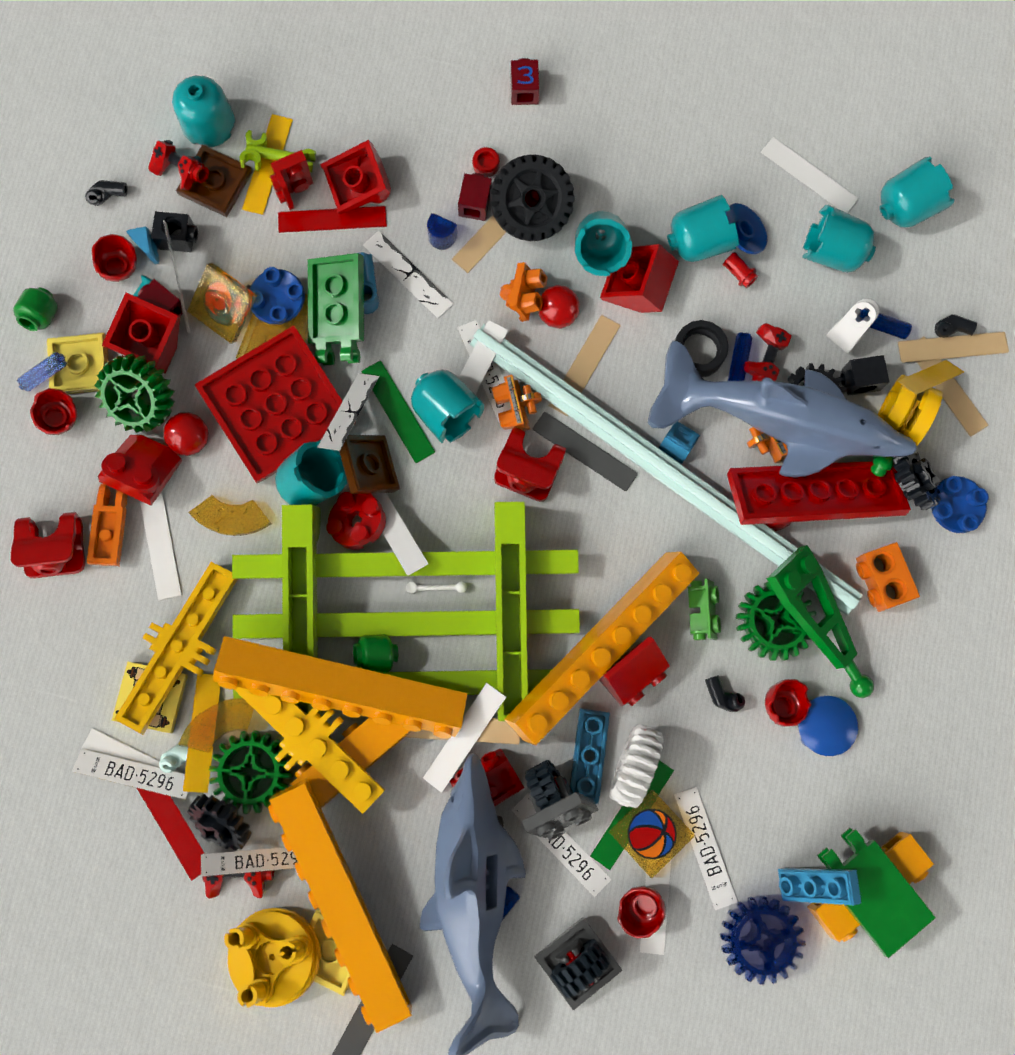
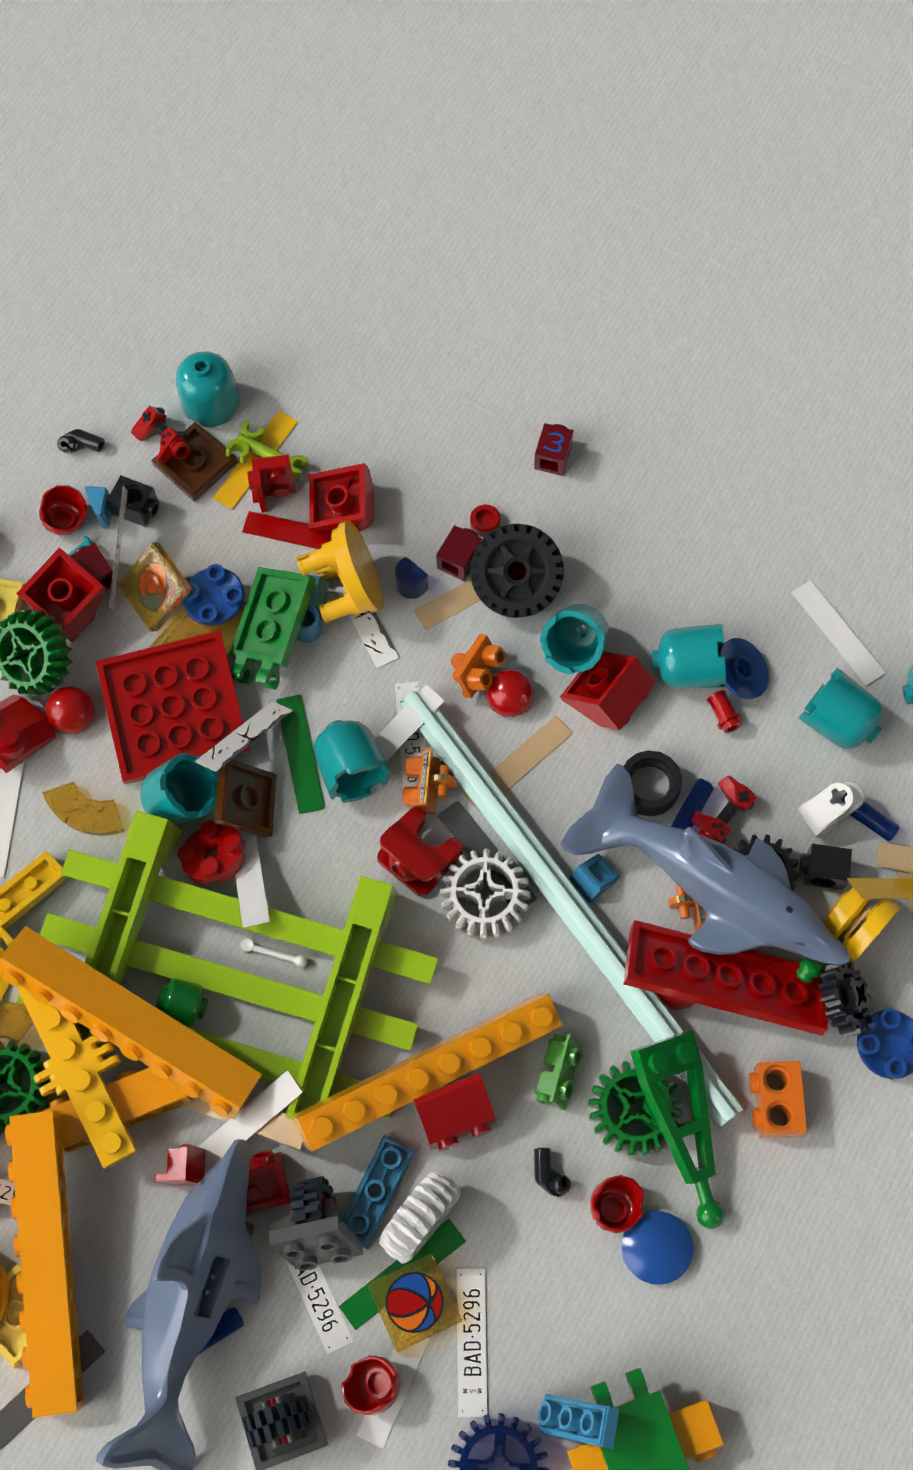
camera: 25 degrees right, 10 degrees down
(385, 229) = (352, 562): none -> yellow piece
(426, 788) = (184, 1166): none -> panel
(609, 479) = (470, 893): none -> white gear

